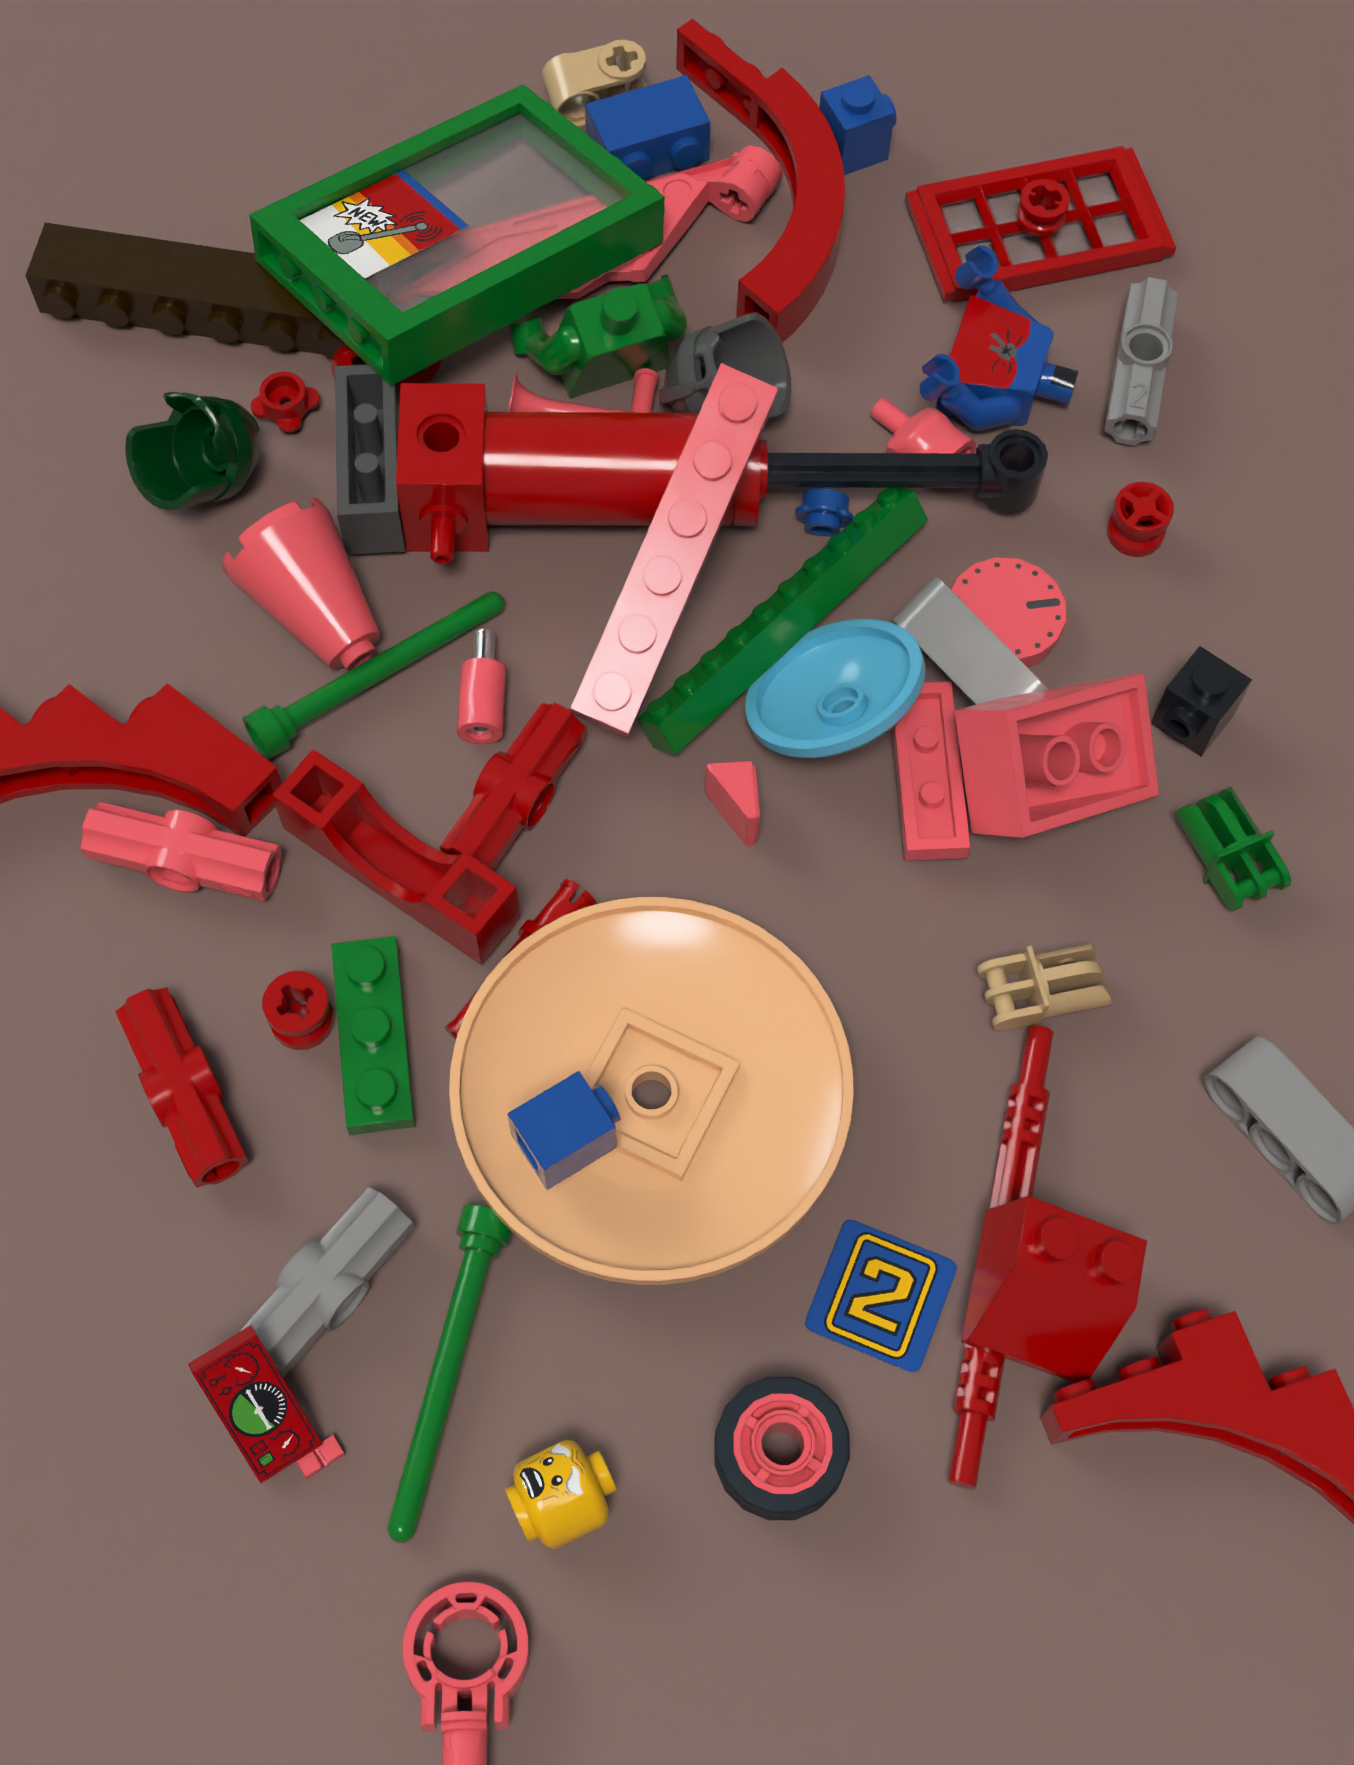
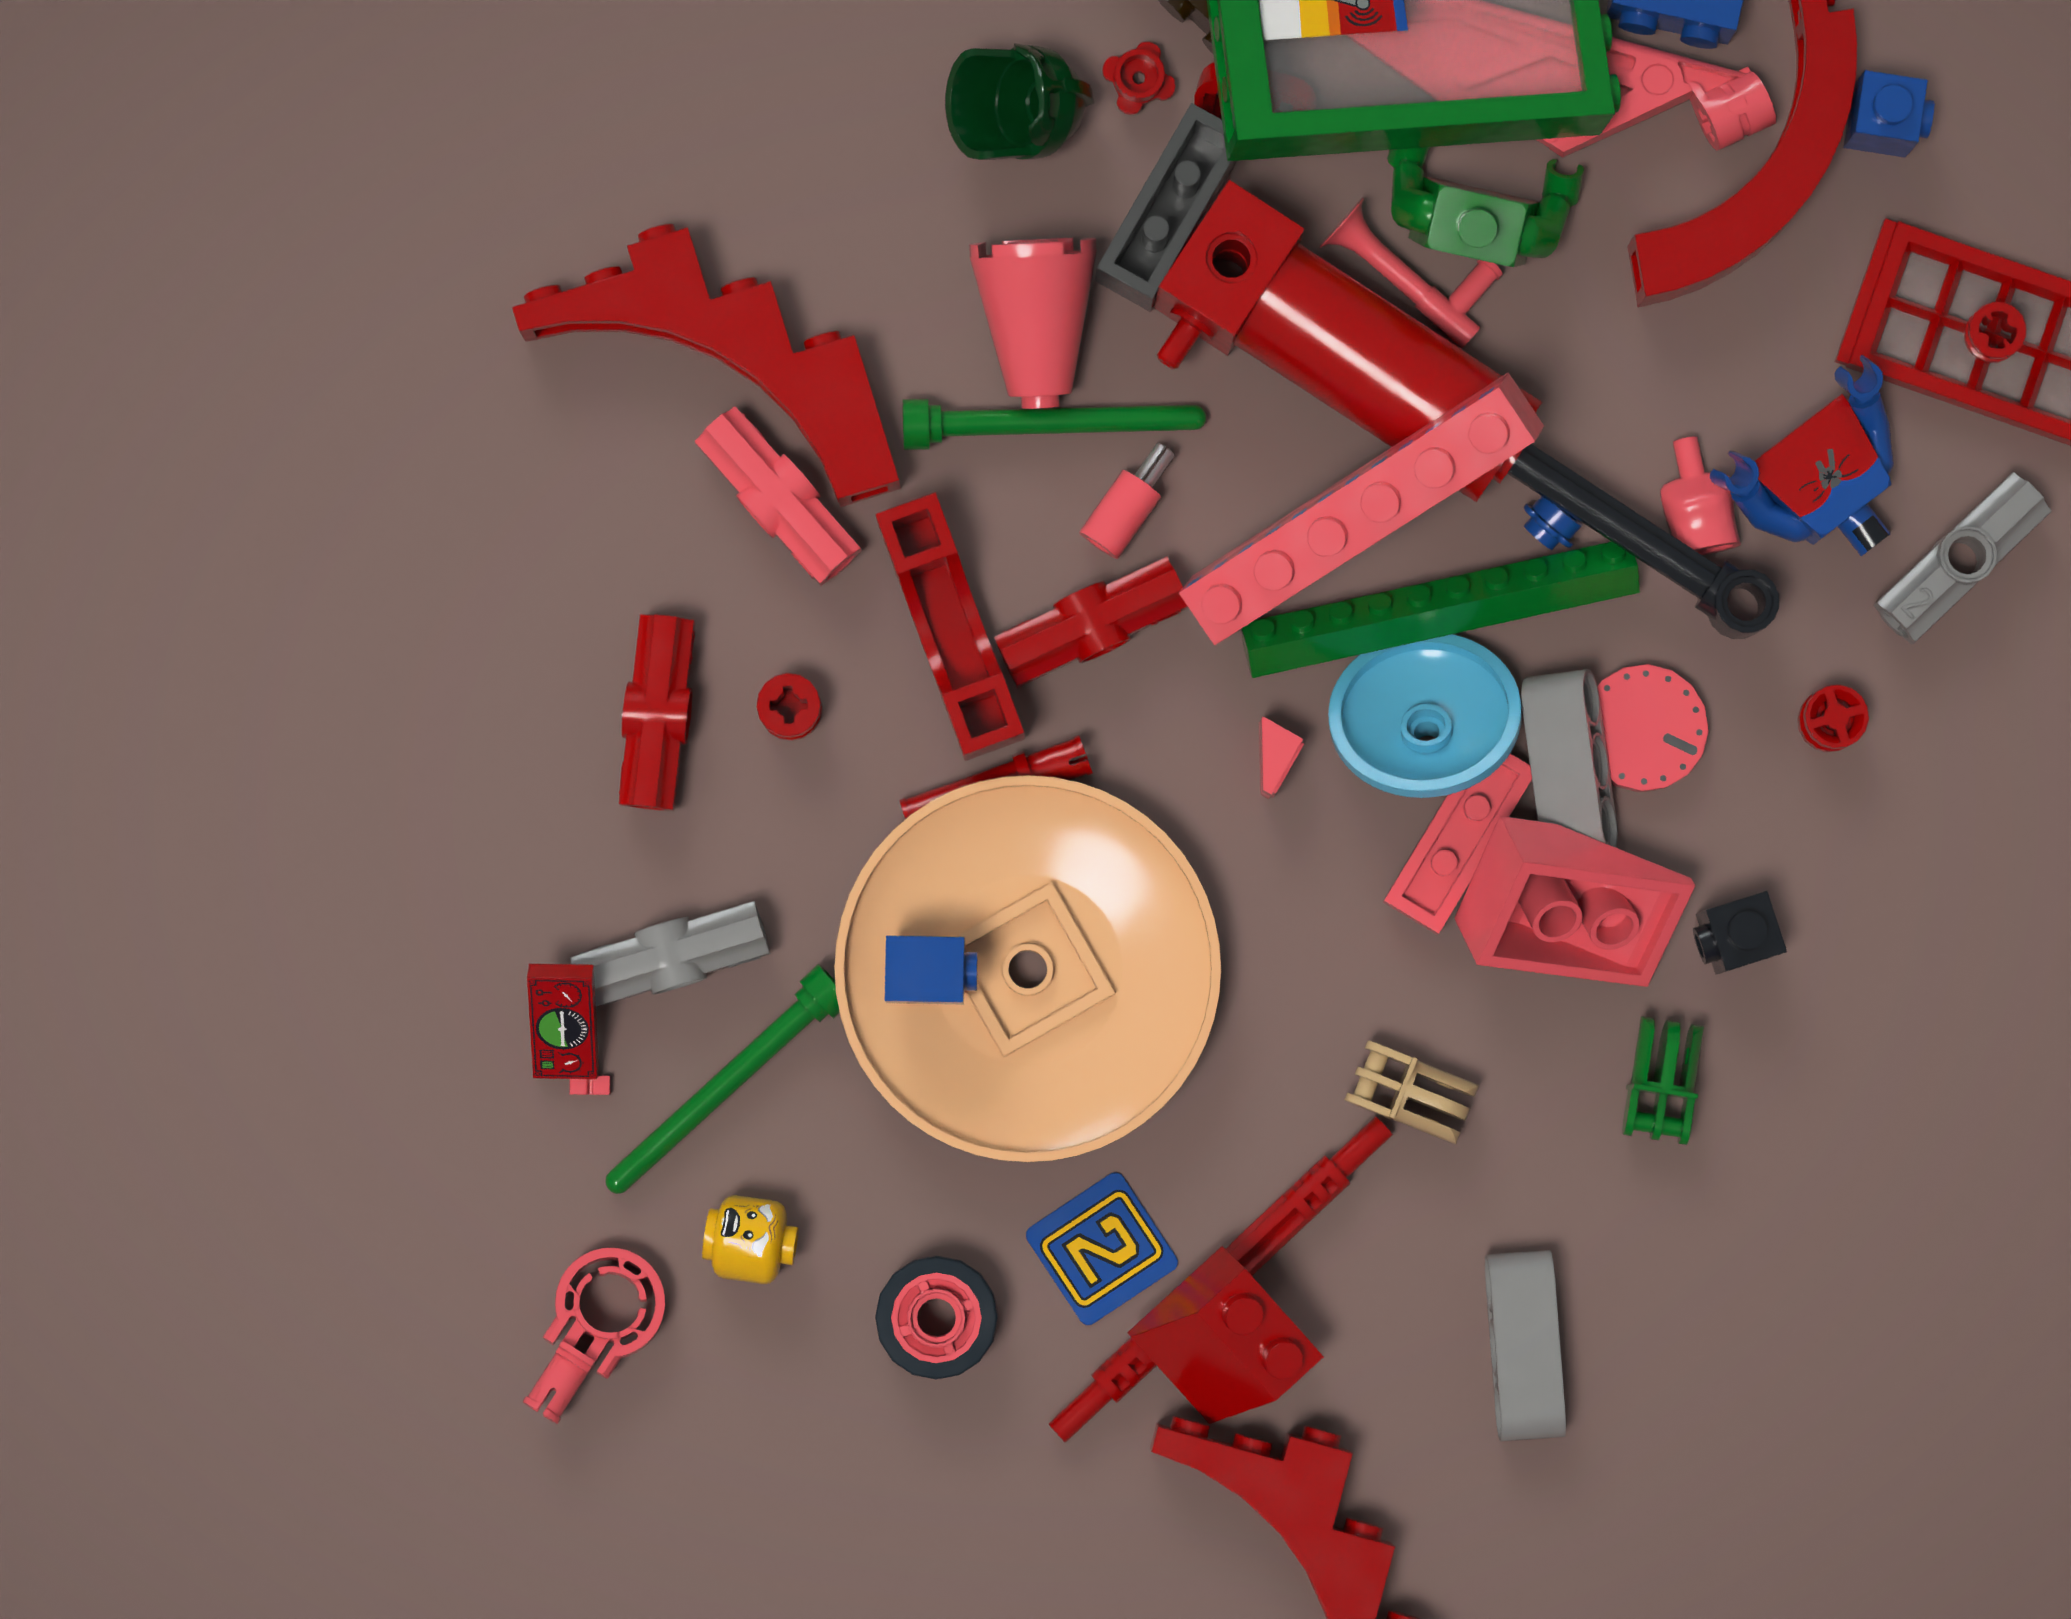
camera: 35 degrees right, 20 degrees up
(372, 1036) = (838, 764): green plate -> none
(742, 344) = (1554, 334): dark grey helmet -> none

